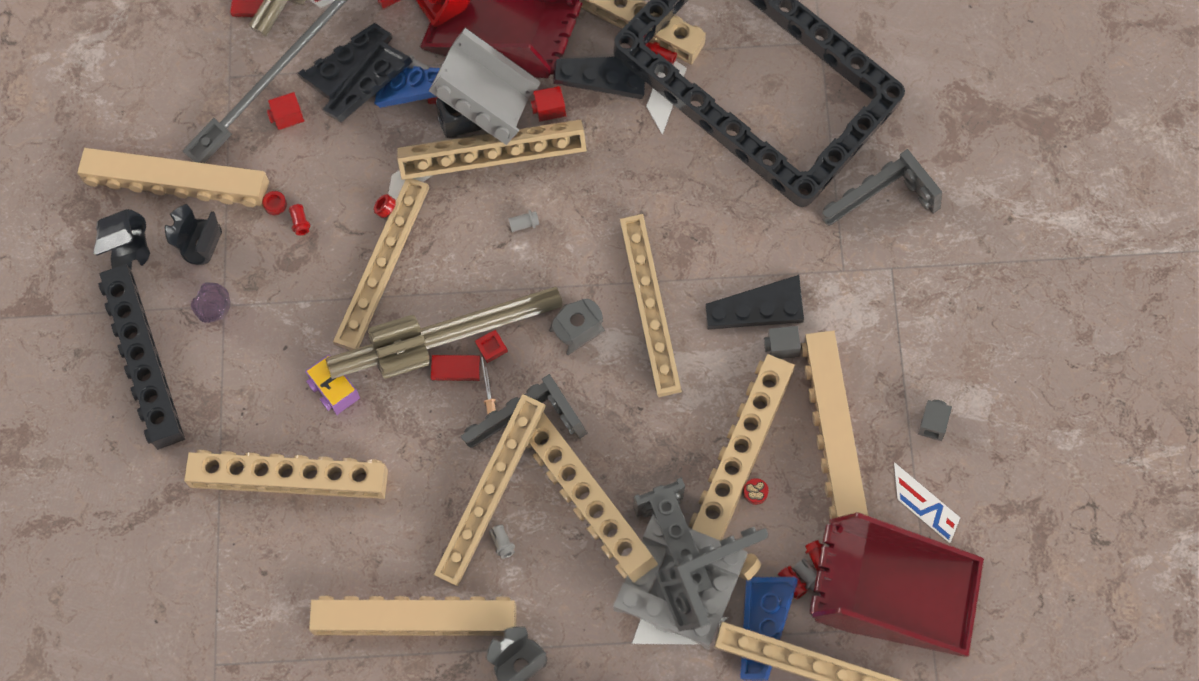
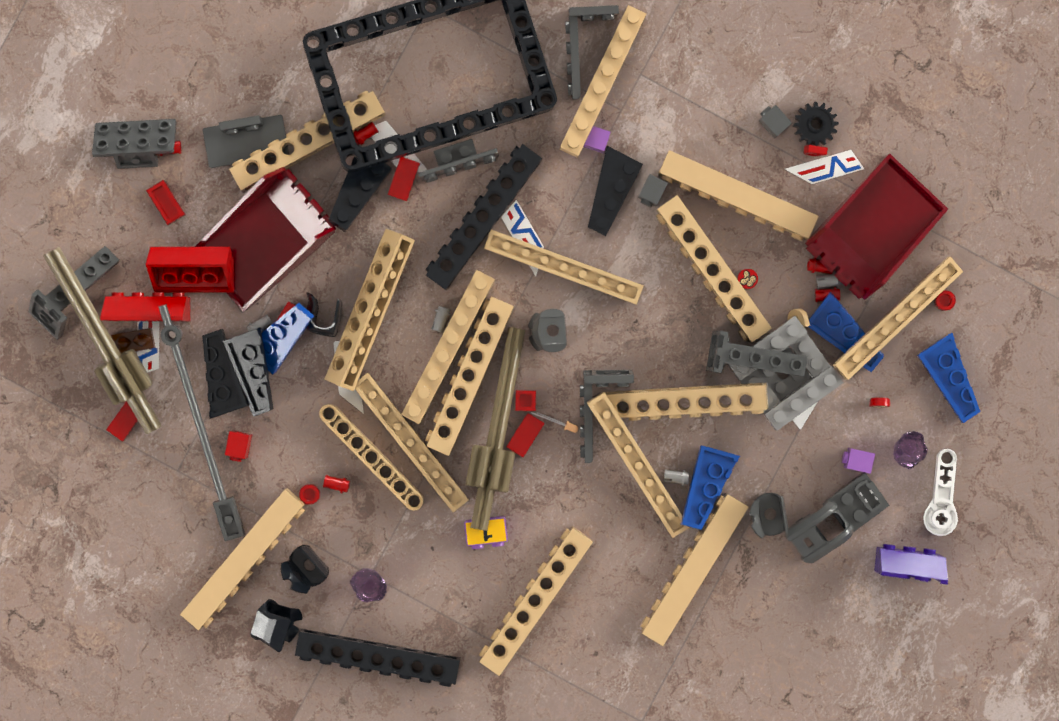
camera: 65 degrees left, 20 degrees up
(347, 245) = (362, 452): none -> tan beam
(384, 206) = (365, 414): red tile -> none
(473, 288) = (446, 444): none -> tan brick
(484, 86) = (322, 289): light grey panel -> none
(499, 242) = (448, 347): none -> tan brick
(516, 575) = (709, 476): none -> blue wing
(548, 104) = (355, 244): red brick -> none
(640, 112) = (403, 178): none -> red tile
(660, 210) = (531, 162): none -> black brick
(663, 245) = (520, 227): none -> white sticker
(682, 589) = (794, 380): dark grey bracket -> none
(690, 144) = (457, 157): none -> dark grey bracket
(798, 258) = (597, 139): none -> medium lavender brick
(858, 230) = (602, 81): none -> tan plate
(933, 477) = (812, 150): none -> red tile
(956, 474) = (825, 119): none -> black gear

